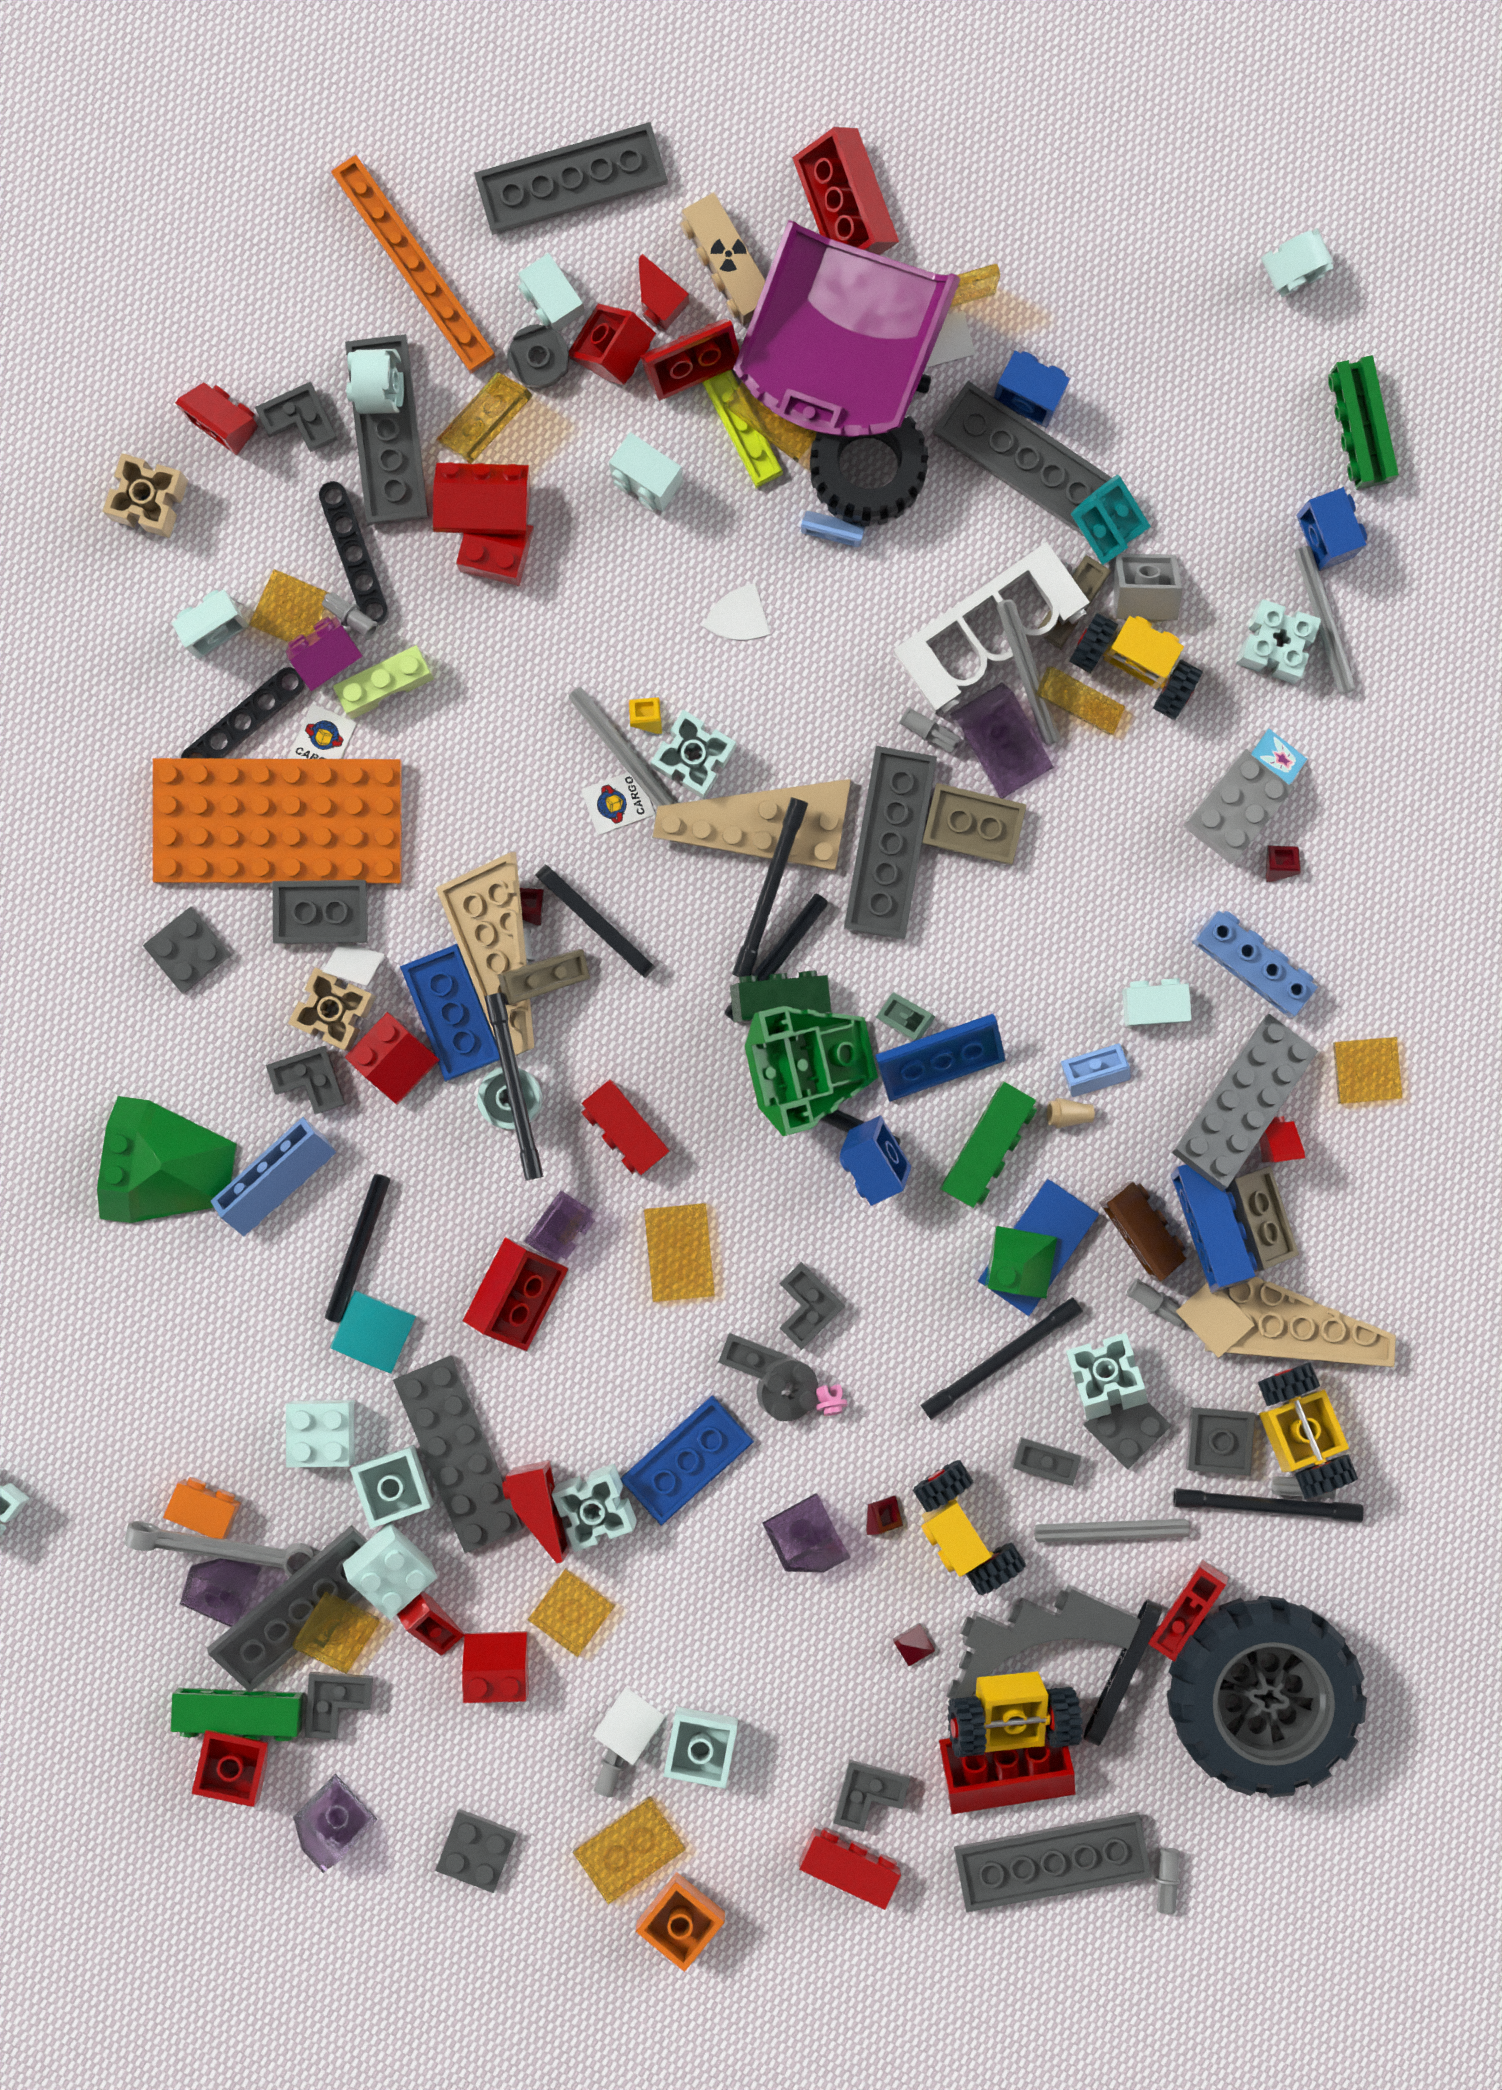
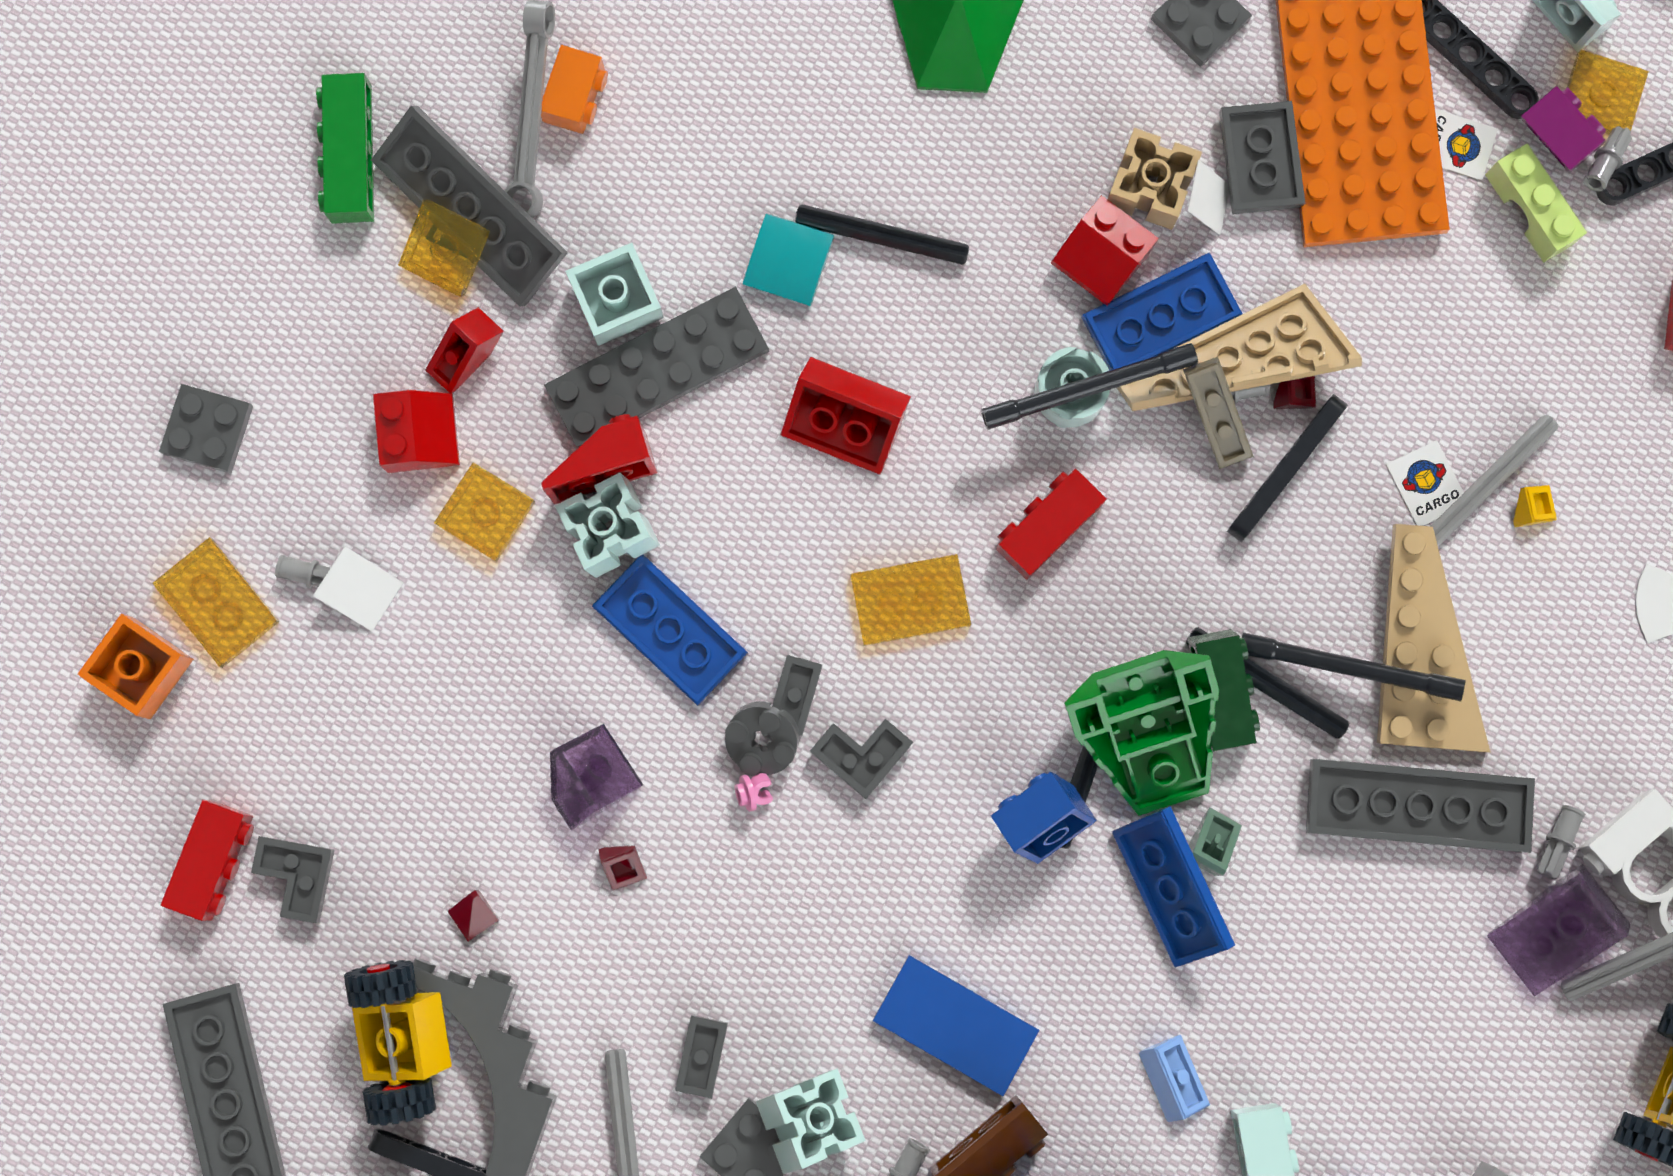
camera: 85 degrees right, 5 degrees down
(220, 1589) = (485, 117): clear purple slope -> none
(231, 1768) = (283, 145): red slope -> none
(273, 1176) = (955, 131): medium blue brick -> none
(314, 1072) = (1078, 165): dark grey plate -> none
(320, 1433) = (668, 210): light aqua brick -> none
(328, 1694) = (370, 245): dark grey plate -> none
(331, 1823) = (229, 262): clear purple slope -> none
(389, 1570) = (518, 298): light aqua brick -> none
(560, 1226) = (930, 457): clear purple slope -> none
(688, 736) = (1517, 556): light aqua brick -> none
(700, 1747) = (338, 672): light aqua brick -> none
(954, 1533) = (604, 954): brick -> none
(974, 824) = (1454, 905): dark tan plate -> none
(987, 1145) = (1072, 953): green brick -> none
(1006, 1776) = (324, 1039): red slope -> none
(1020, 1262) = (937, 1005): green slope -> none
(1056, 1319) = (871, 1054): black piece -> none
(1067, 1113) = (1120, 1048): tan cone -> none
(1080, 700) = (1622, 1021): clear yellow tile -> none

